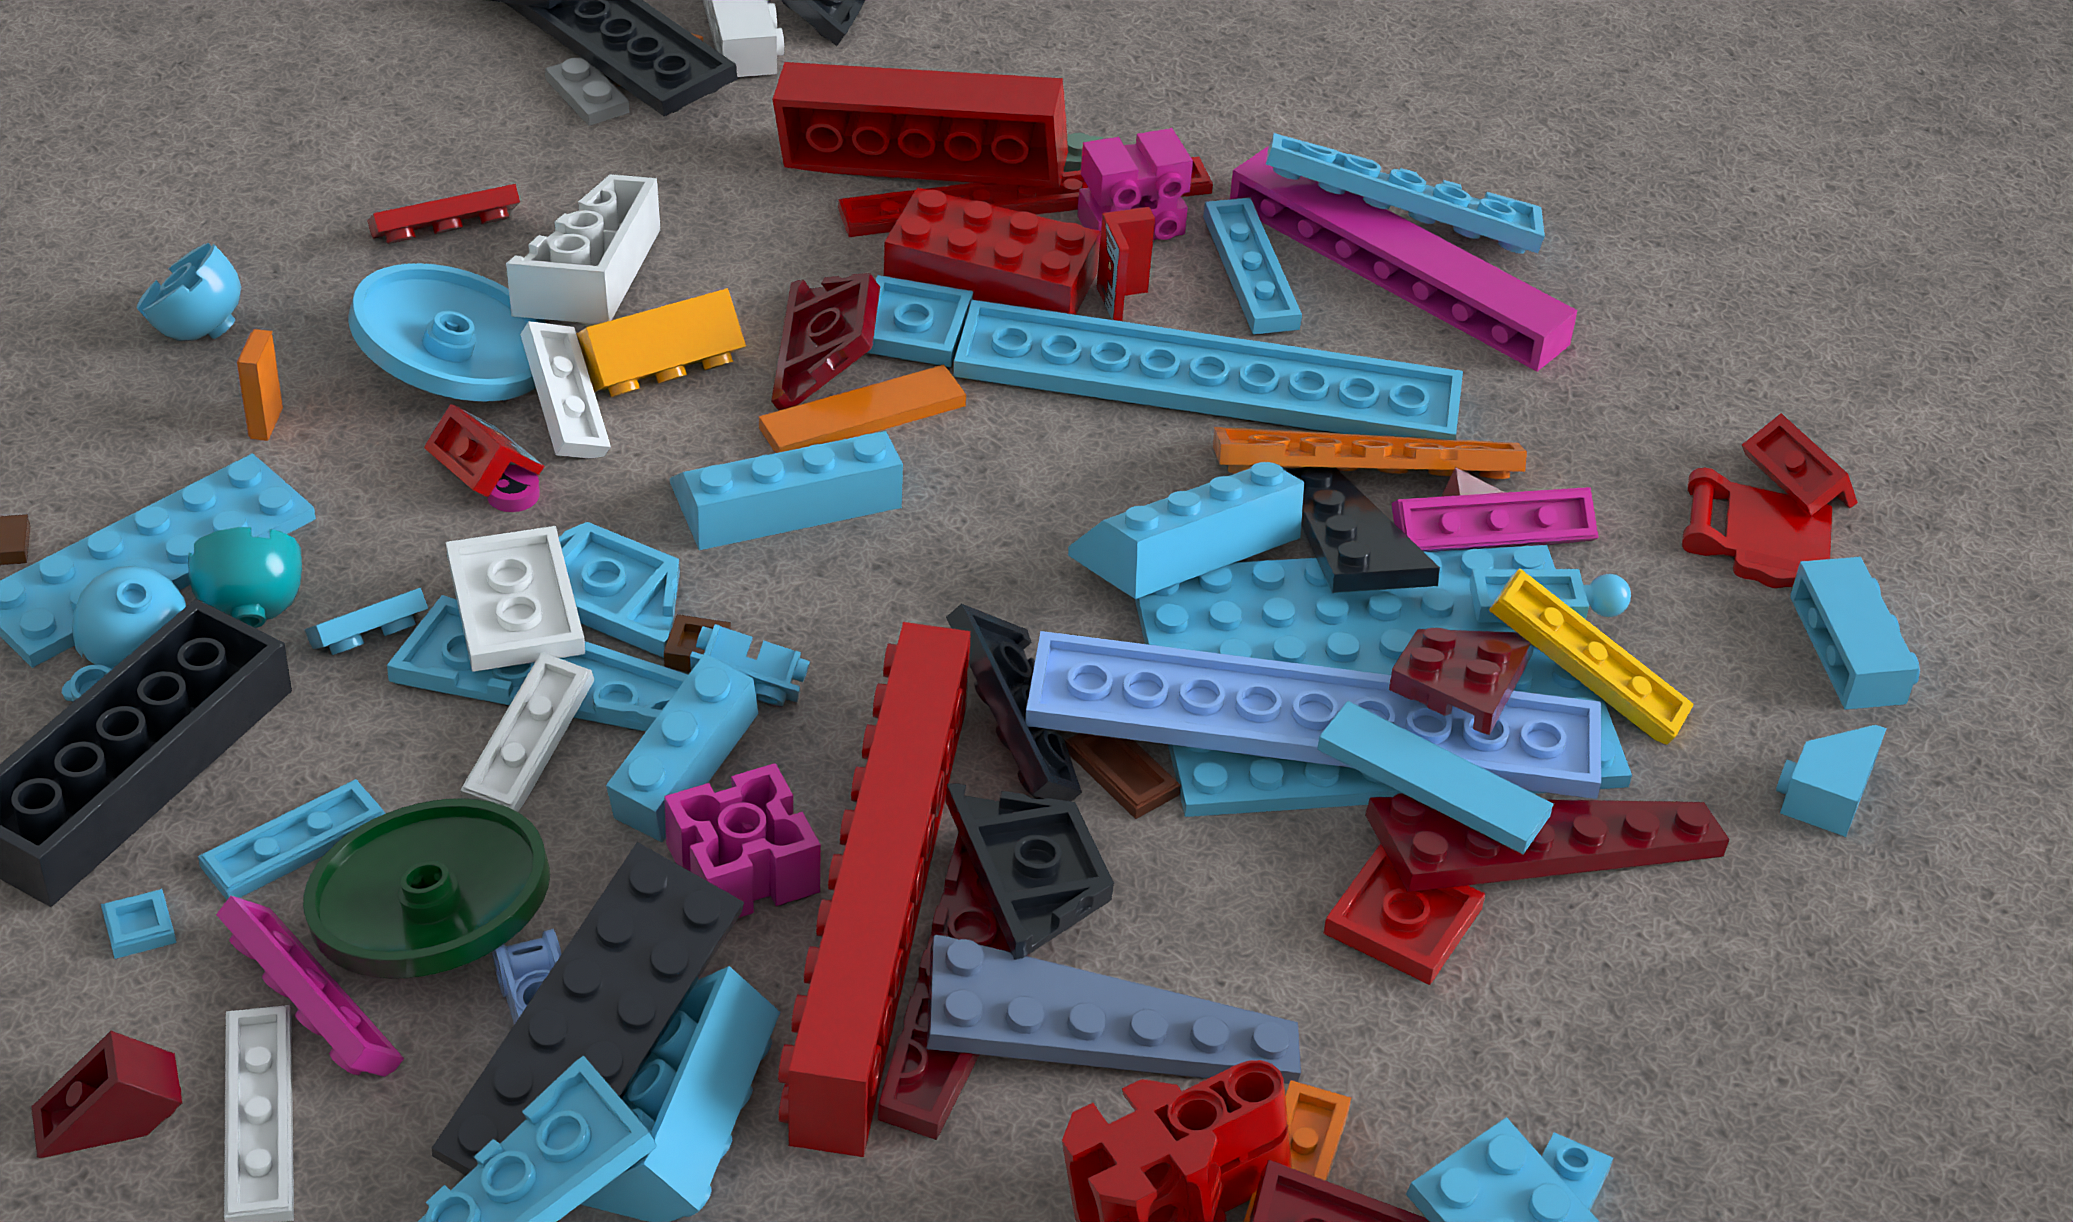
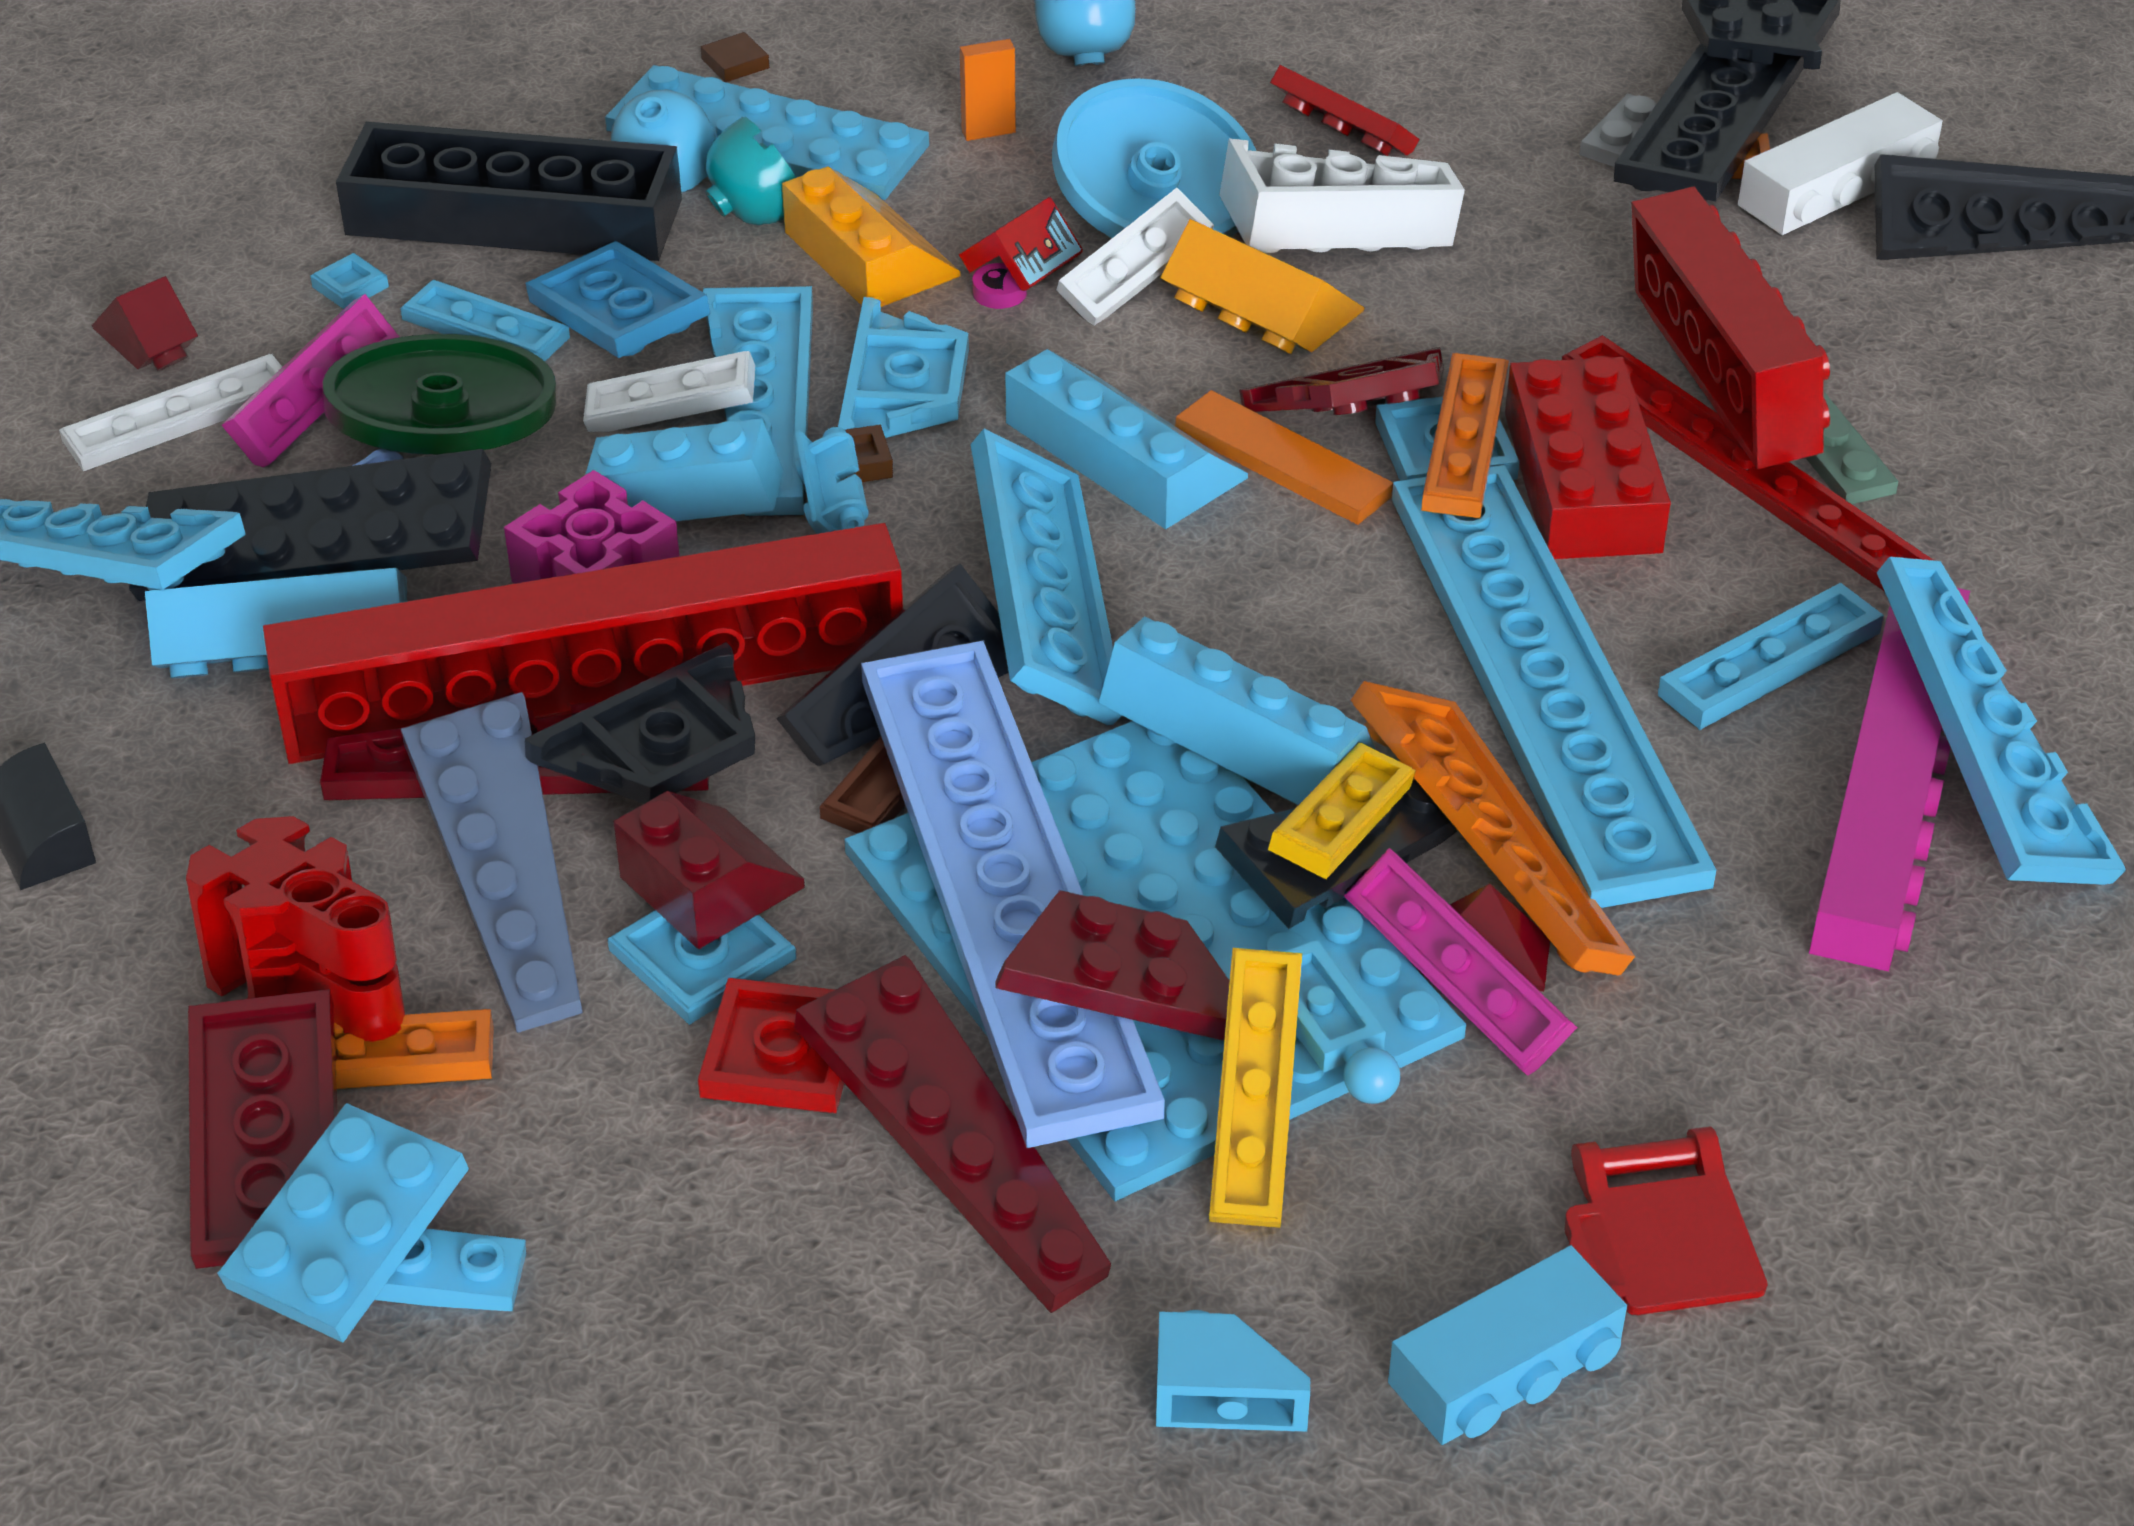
camera: 70 degrees right, 0 degrees up
(346, 630) = (738, 256): medium azure plate -> none
(355, 727) = (618, 299): none -> dark azure plate
(382, 548) = (860, 238): none -> light orange slope
(514, 598) = (815, 316): white plate -> none
(938, 303) = (1465, 436): none -> orange tile
(969, 583) = (1044, 576): none -> medium azure plate
(1124, 257) = (1643, 534): red panel -> none
(1135, 177) = (1782, 510): dark pink brick -> none
(1204, 894) = (699, 866): none -> dark red slope
(1261, 935) = (693, 978): none -> medium azure tile
(1354, 510) = (1341, 810): none -> yellow tile
(1435, 777) = (936, 983): medium azure tile -> none
(1798, 466) = (1800, 1231): red panel -> none

